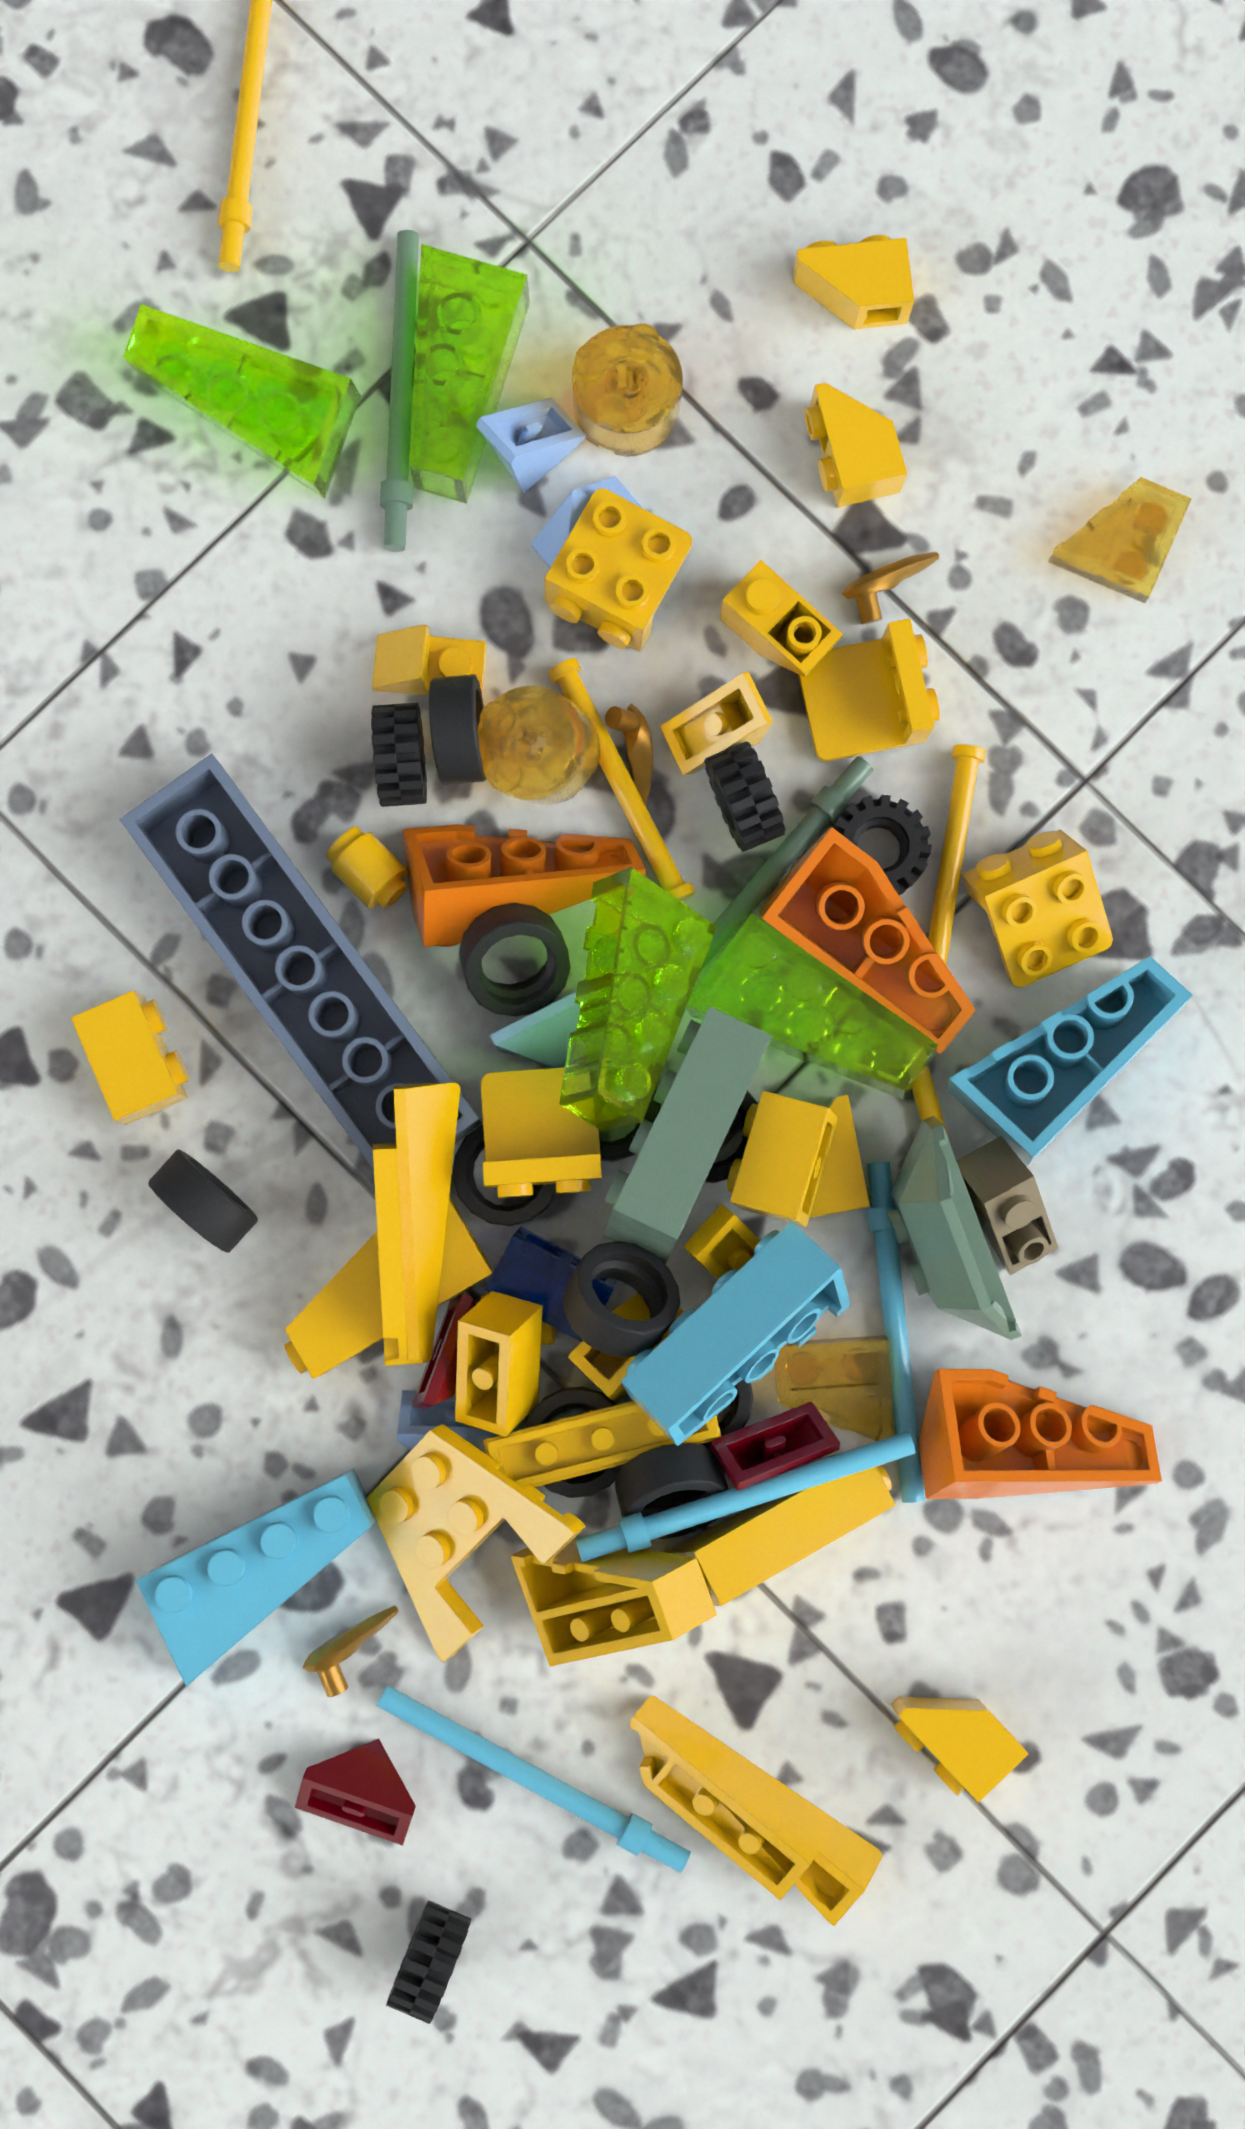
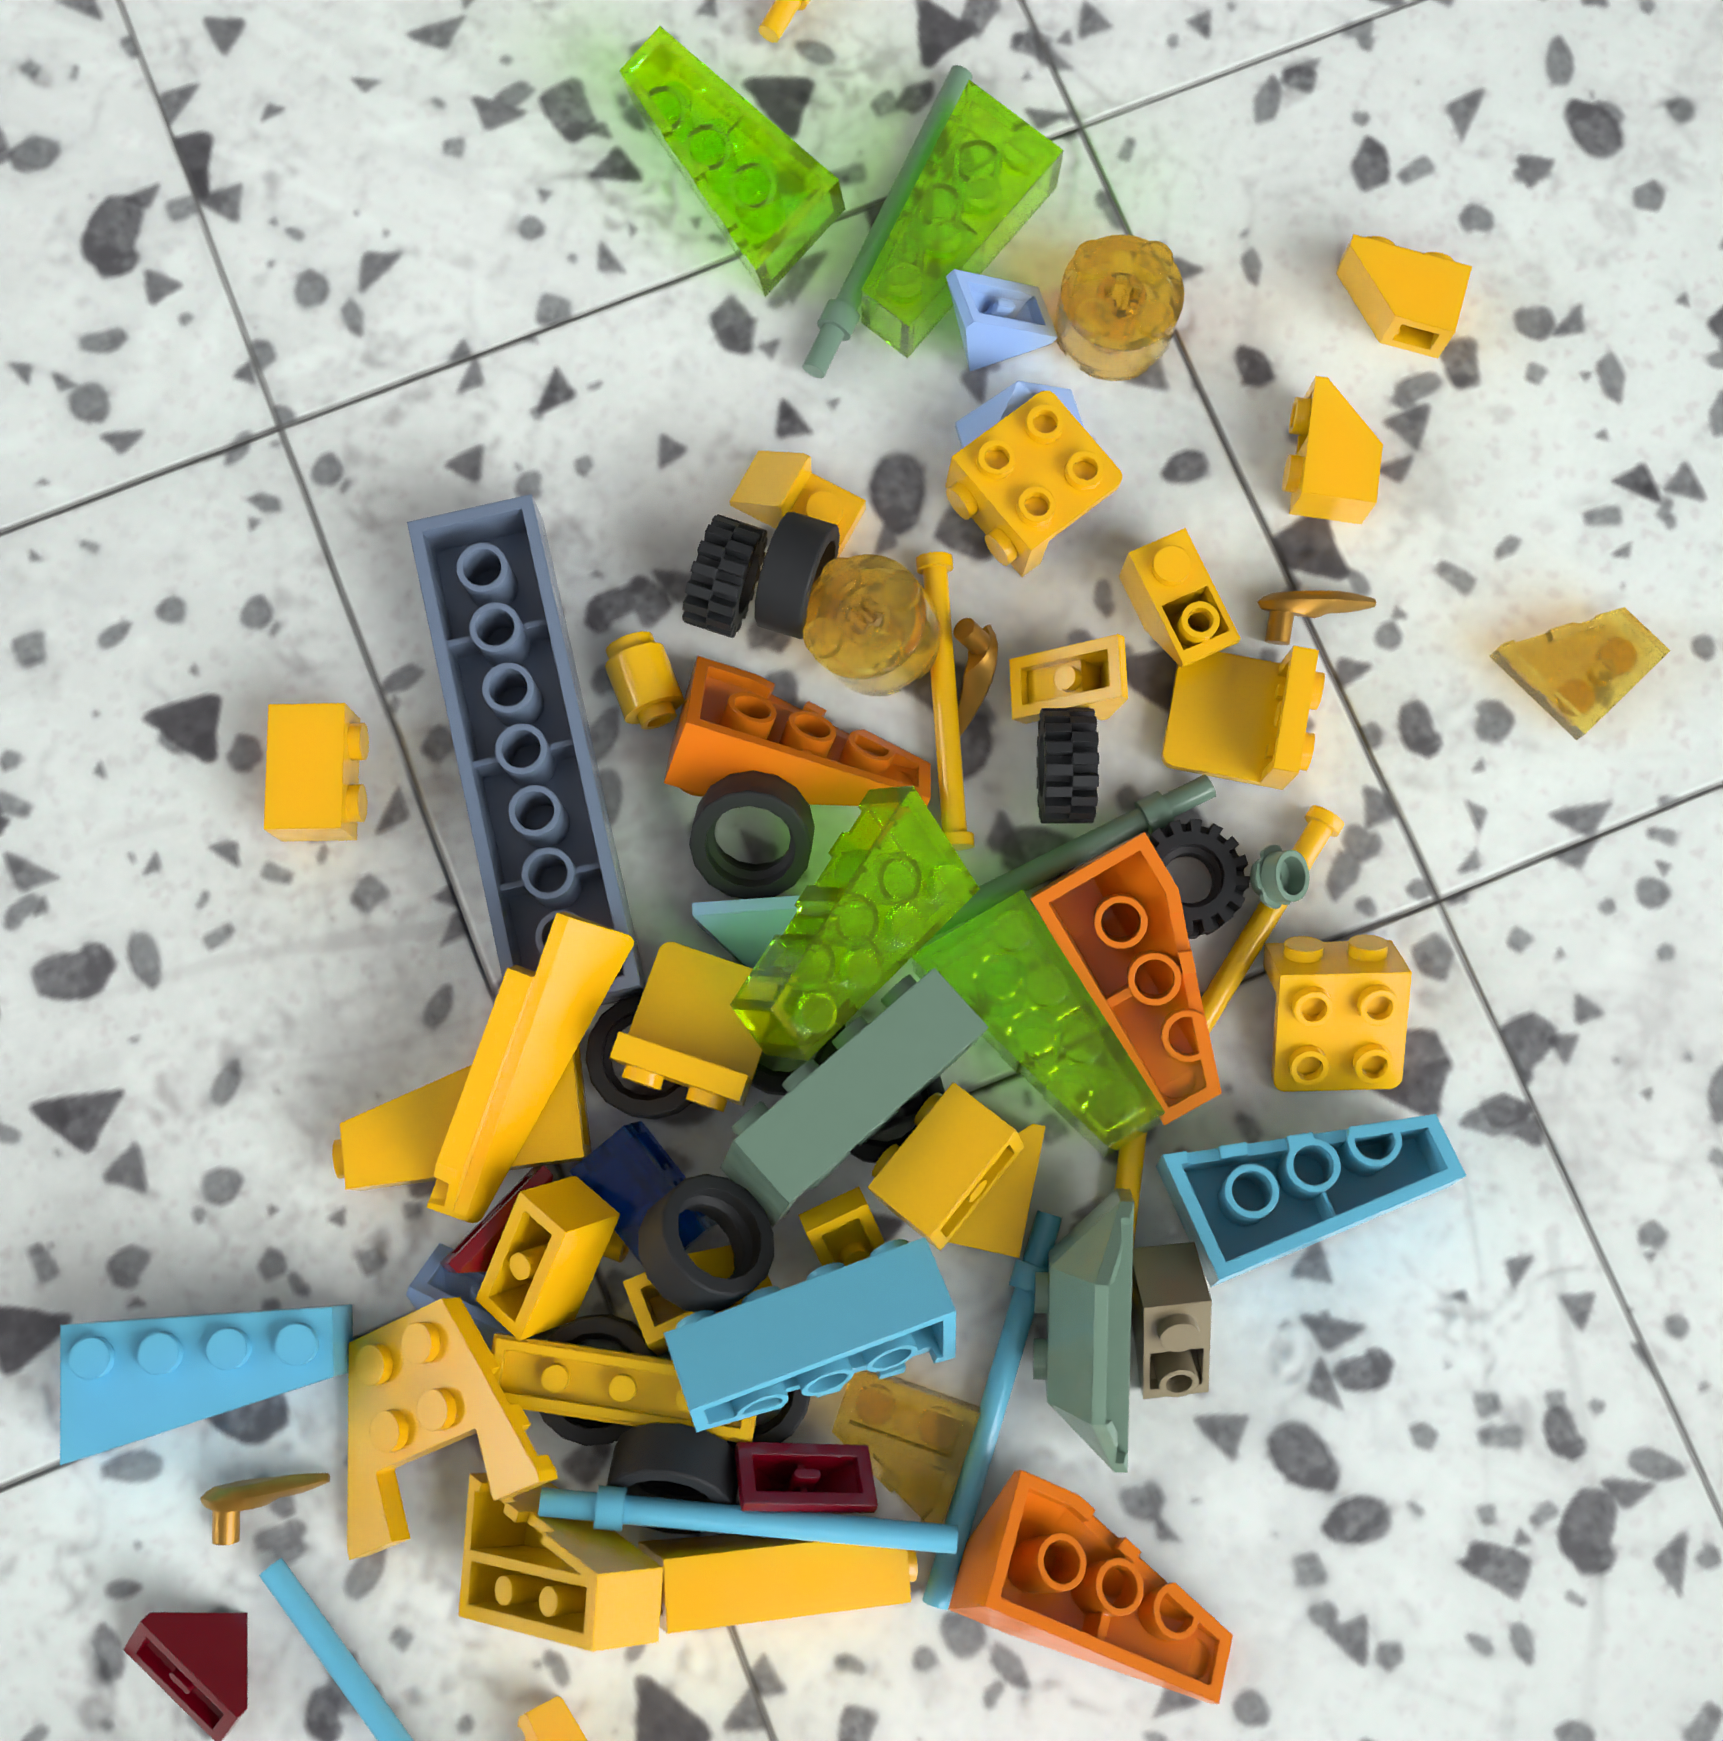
camera: 25 degrees right, 5 degrees down
(202, 1201) = (316, 951): black tyre -> none
(951, 816) = (1279, 876): none -> sand green plate

